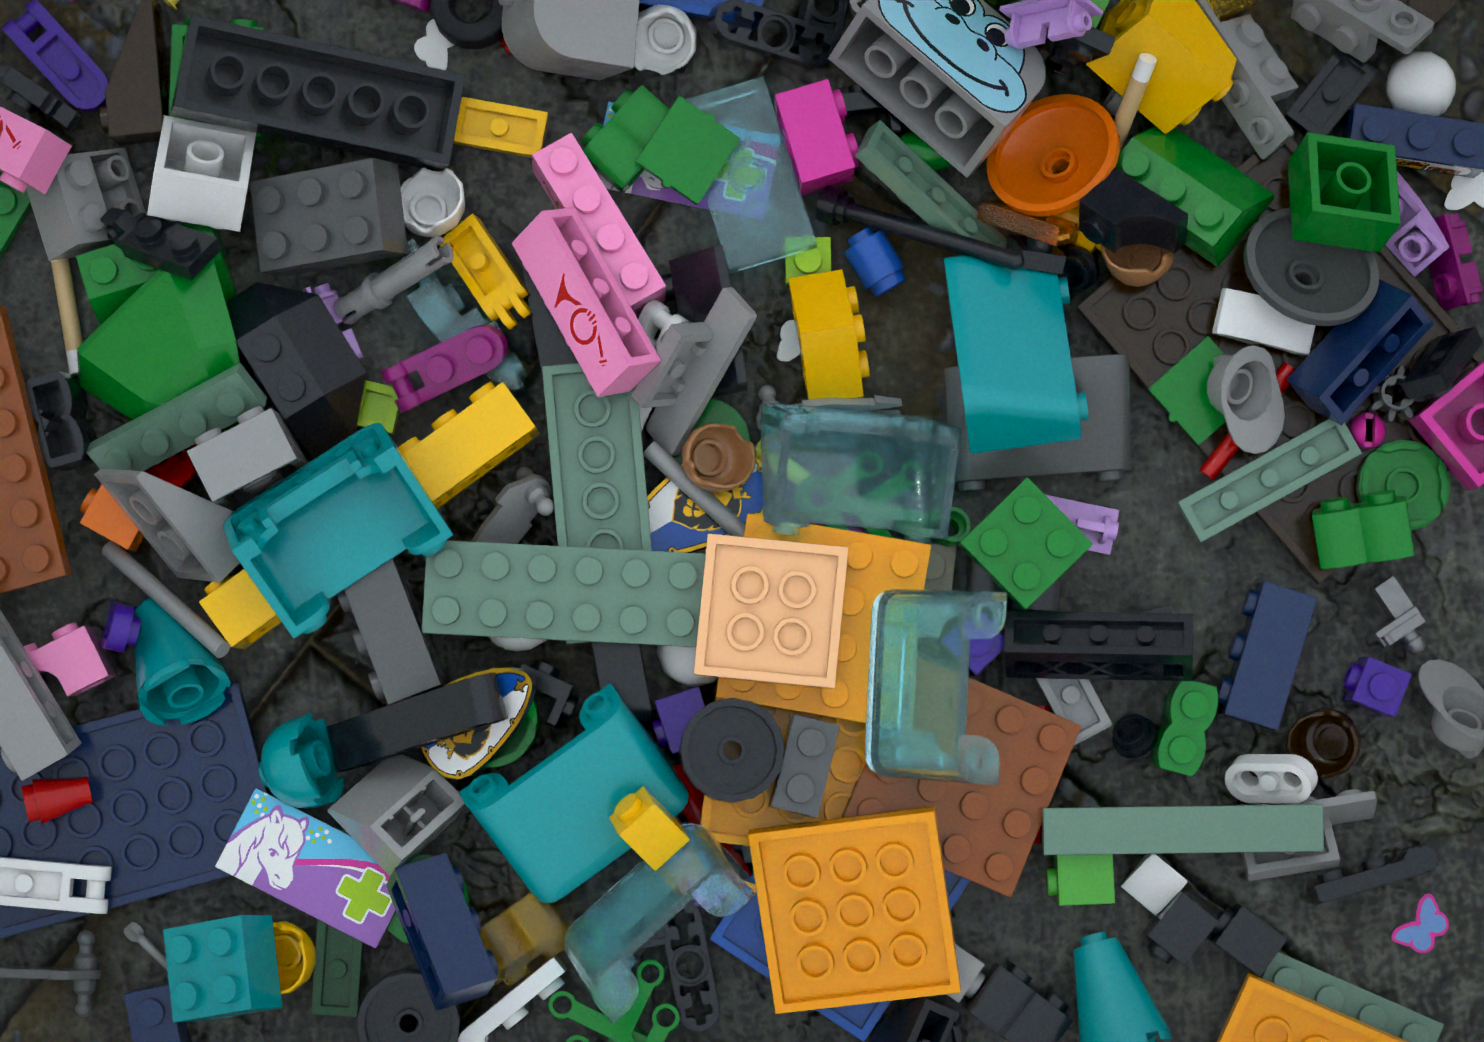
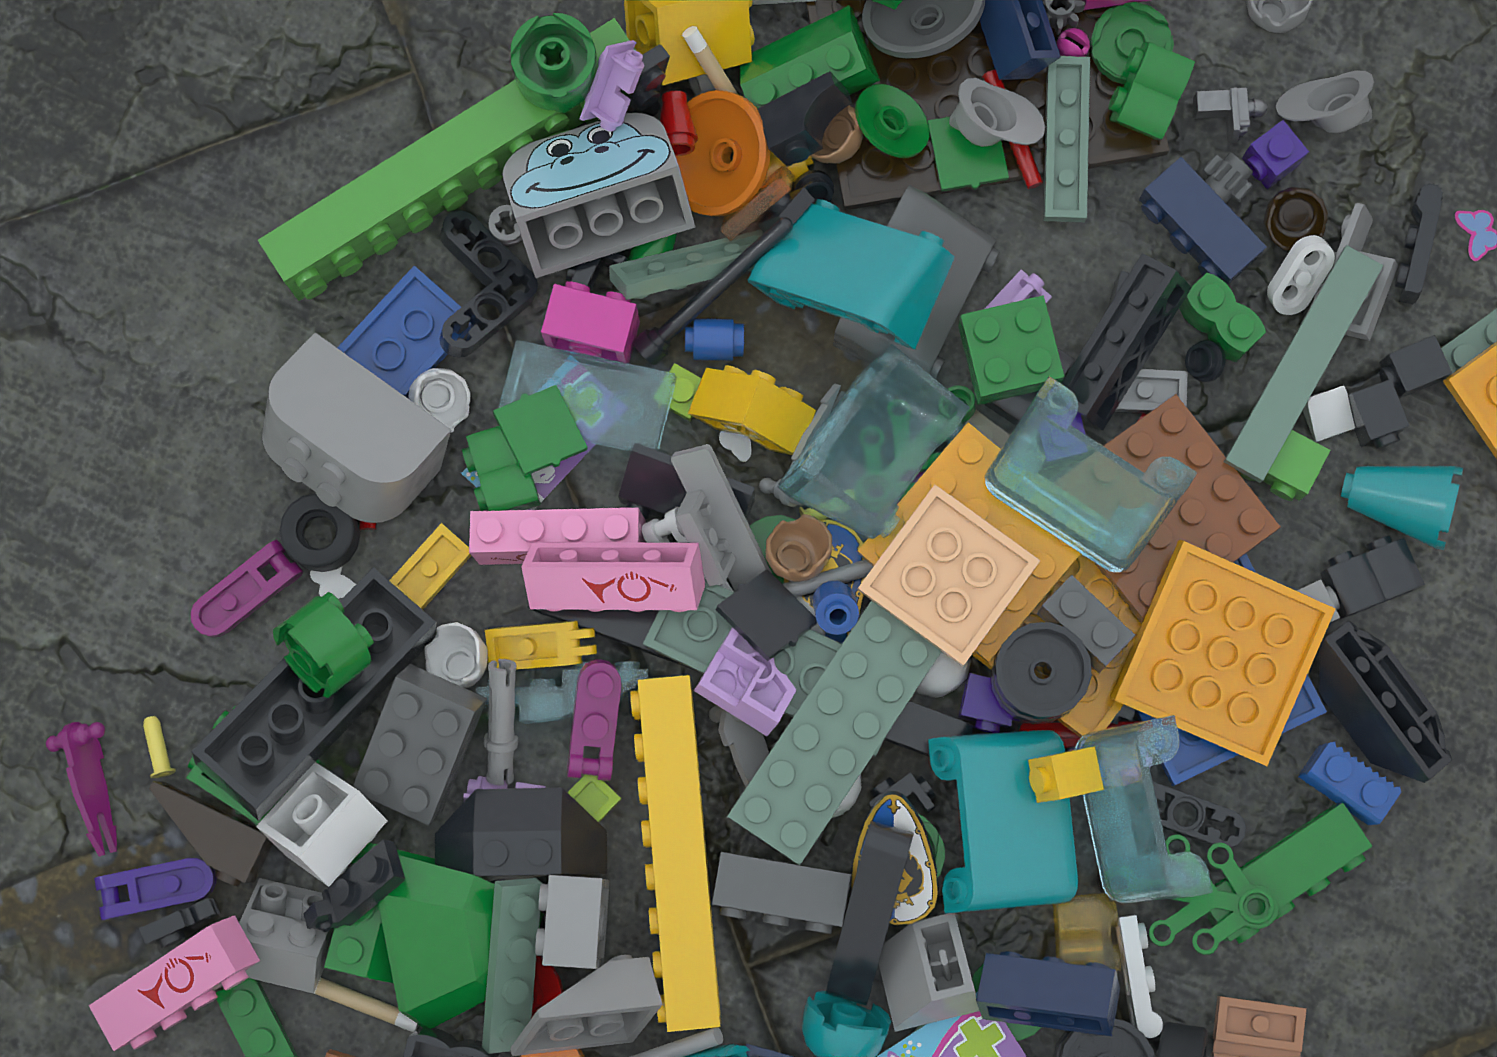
camera: 55 degrees left, 5 degrees down
(333, 526) = (673, 881): teal windscreen -> none
(359, 75) = (324, 644): none -> green brick
(563, 482) = (746, 684): none -> lavender slope
(636, 465) = (766, 615): none -> black piece
(681, 524) = (839, 597): none -> blue brick
(1058, 100) = (678, 122): none -> red cone
(1197, 297) = (892, 121): none -> green dish
(1254, 321) = (941, 73): white slope -> none
(1325, 654) = (1228, 177): none -> dark grey gear

